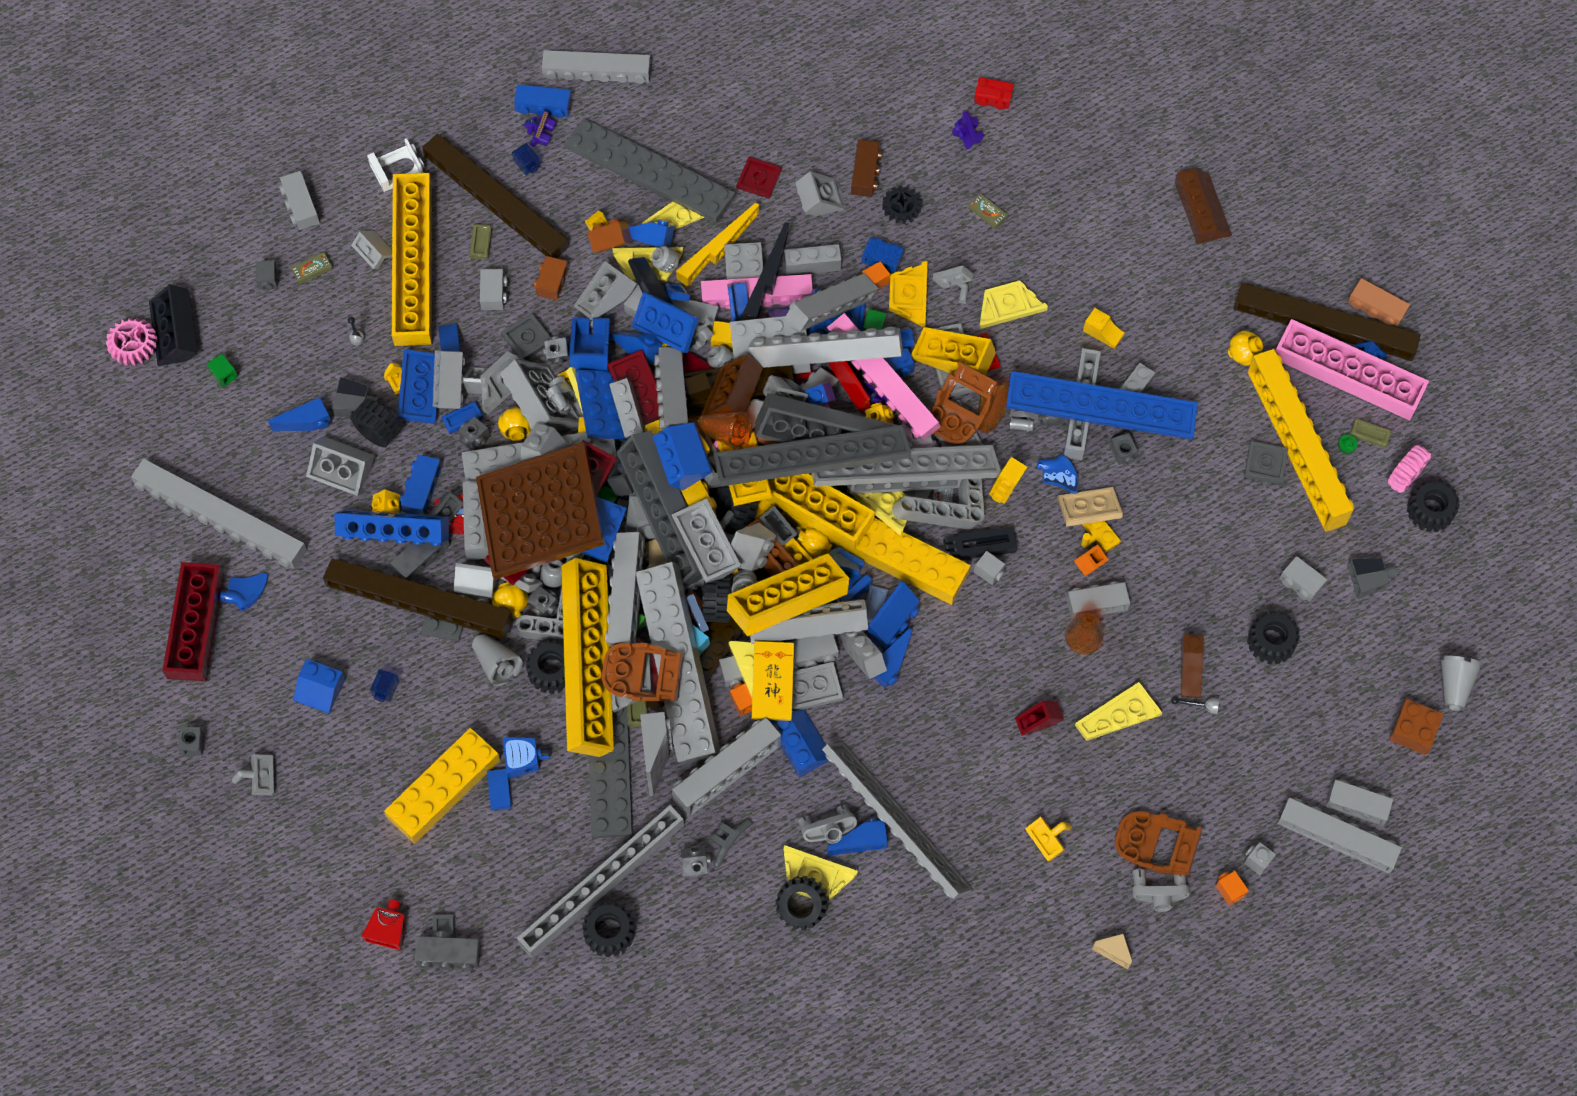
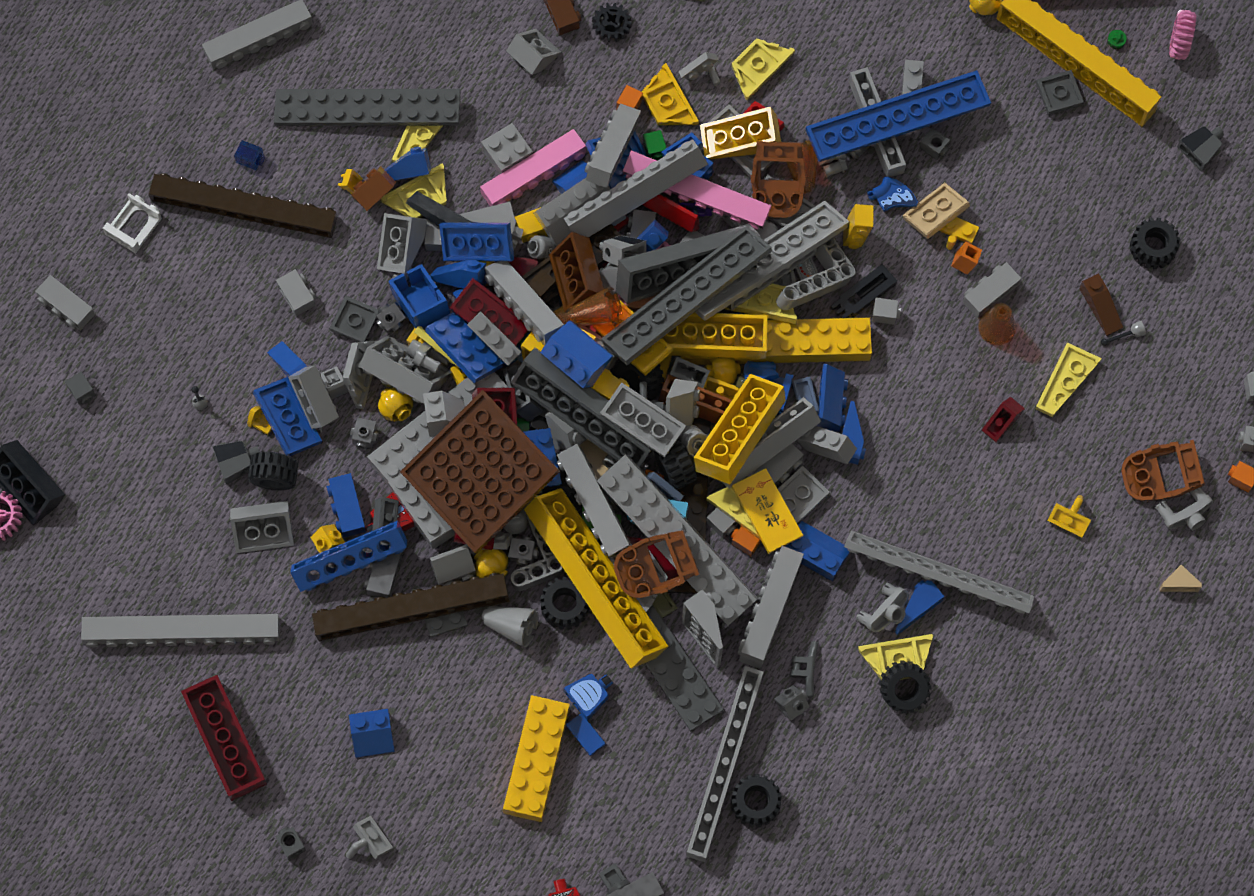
camera: 30 degrees left, 5 degrees up
(222, 370) = (97, 498): green brick -> none
(244, 591) = (249, 685): blue arm -> none
(303, 418) = (203, 499): blue slope -> none
(311, 268) = (116, 359): olive tile -> none
(371, 248) = (161, 312): light grey panel -> none
(384, 686) = (429, 700): clear blue brick -> none
(412, 259) = (206, 303): yellow brick -> none
(457, 418) = (341, 426): blue tile -> none
(480, 241) = (255, 253): olive tile -> none
(539, 99) = (229, 92): blue brick -> none
(543, 123) = (240, 120): dark purple hips -> none
(551, 278) = (342, 253): dark orange brick -> none
(665, 259) = (437, 183): light grey head -> none
(676, 292) = (465, 208): blue tile -> none
(715, 248) = (472, 149): yellow slope -> none
(737, 299) = (525, 188): blue panel -> none
(759, 177) = (468, 62): dark red tile -> none
(768, 277) = (541, 154): black slope -> none
(812, 260) = (565, 114): light grey brick -> none
(878, 250) = (619, 76): blue brick -> none
(880, 412) = (714, 221): yellow brick -> none
(1102, 328) = (852, 44): yellow arch -> none
(1302, 579) = (1149, 179): light grey brick -> none
(1370, 433) = (1130, 19): olive tile -> none
(1429, 519) = (1212, 68): black tyre -> none

